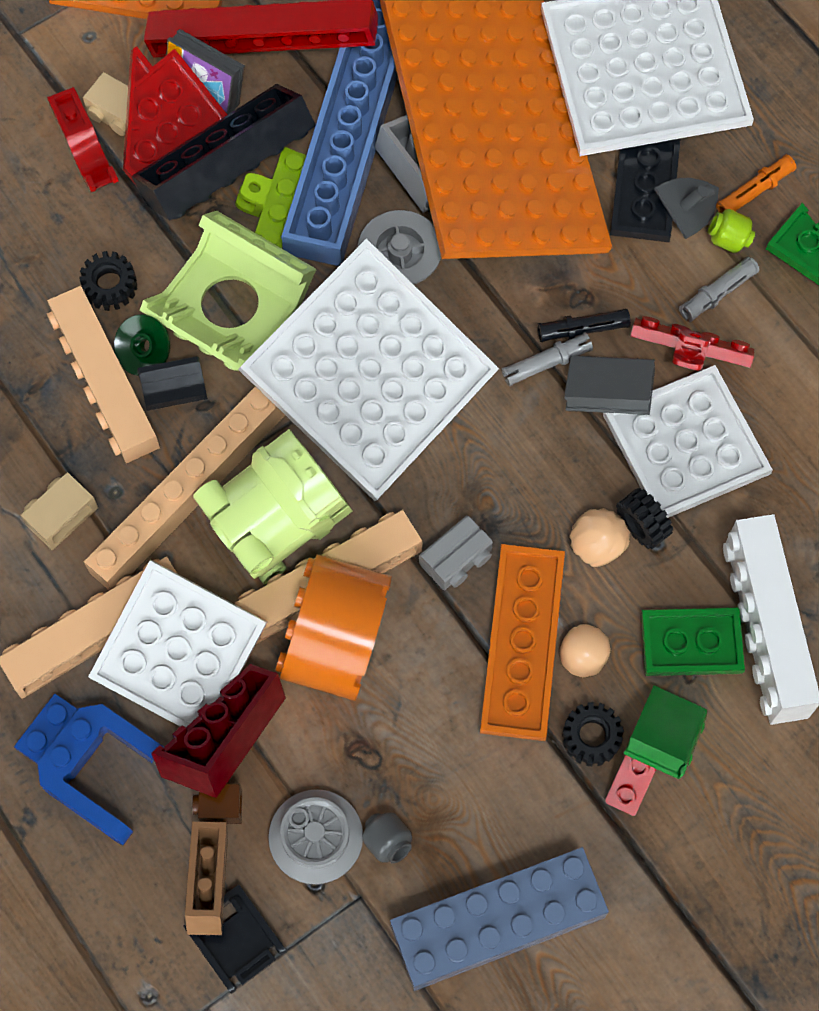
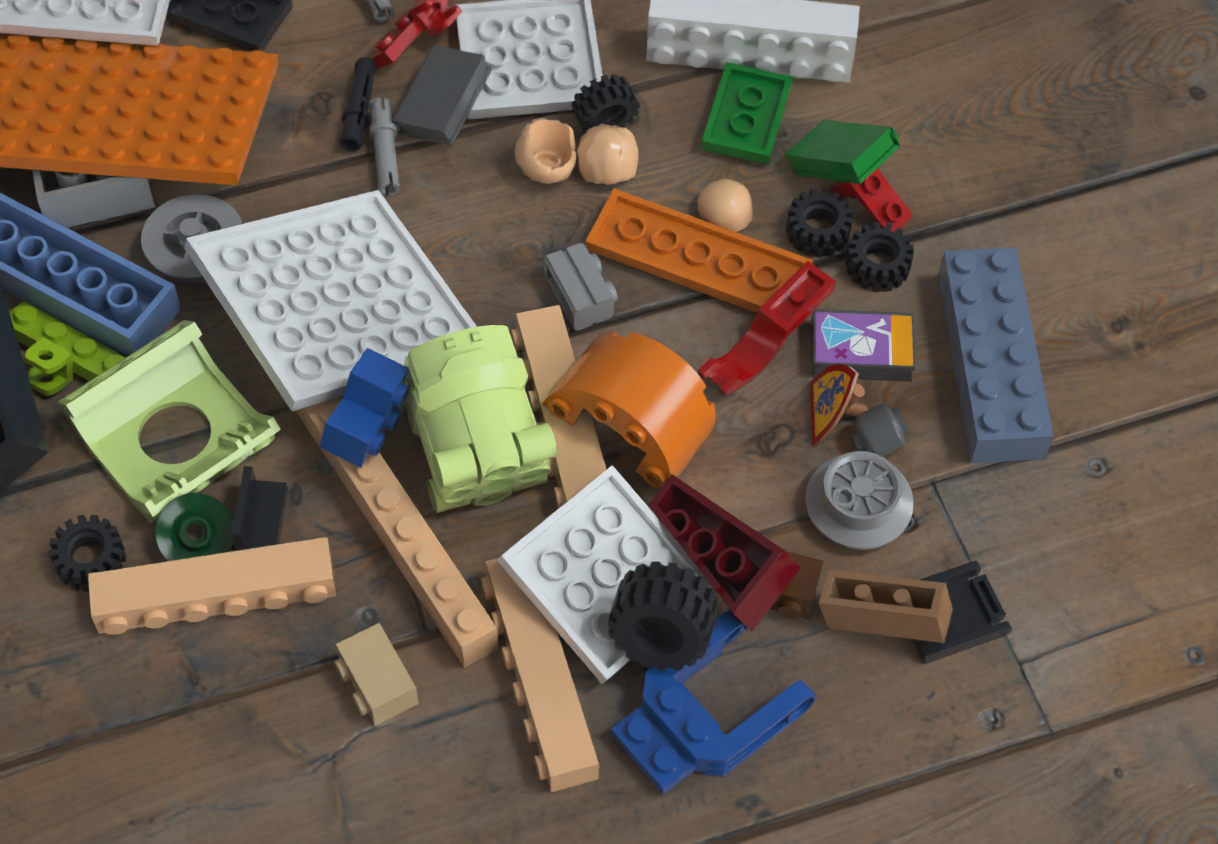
camera: 75 degrees left, 10 degrees down
(130, 697) = (663, 616): none -> black tyre
(250, 421) = (367, 409): none -> blue brick
(403, 789) = (832, 395): none -> shield
(458, 718) = (770, 329): none -> red piece
(477, 803) = (868, 341): none -> piece
(580, 484) = (546, 151): none -> light nougat hair
(581, 777) = (879, 240): none -> black tyre

